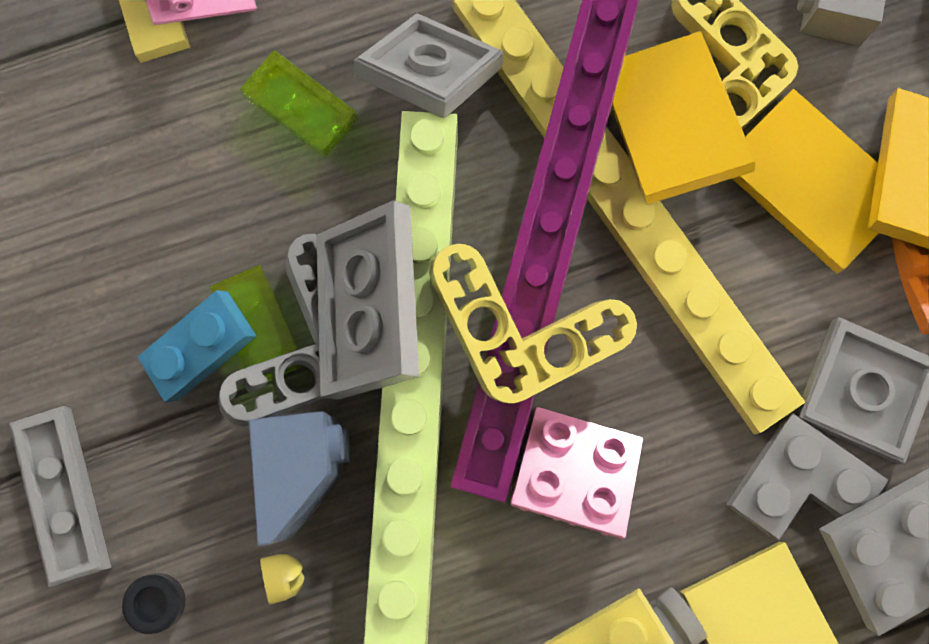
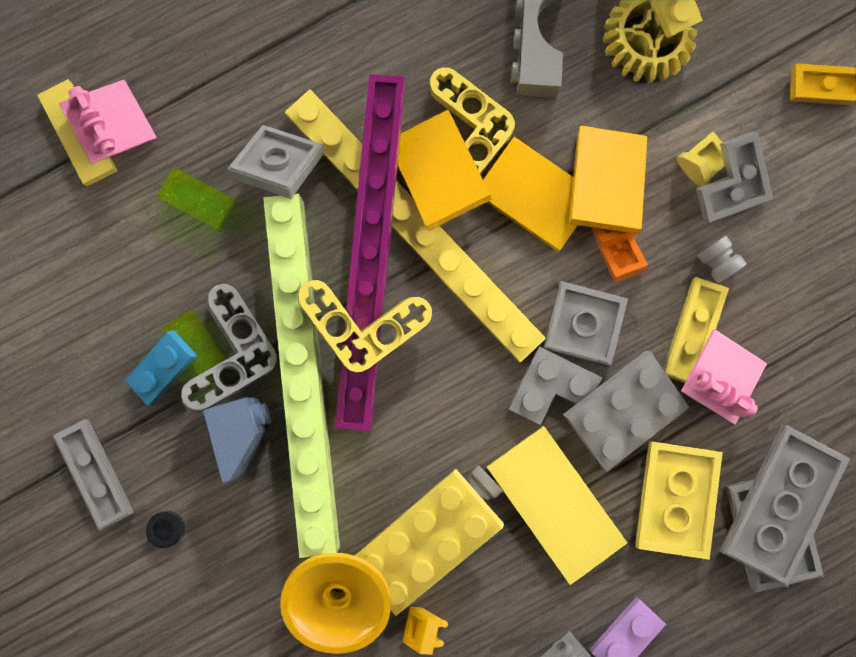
camera: 15 degrees left, 5 degrees up
(281, 577) = (240, 500): light yellow hinge -> none
(367, 303) = (261, 324): light grey plate -> none
(578, 473) = (411, 405): hinge -> none

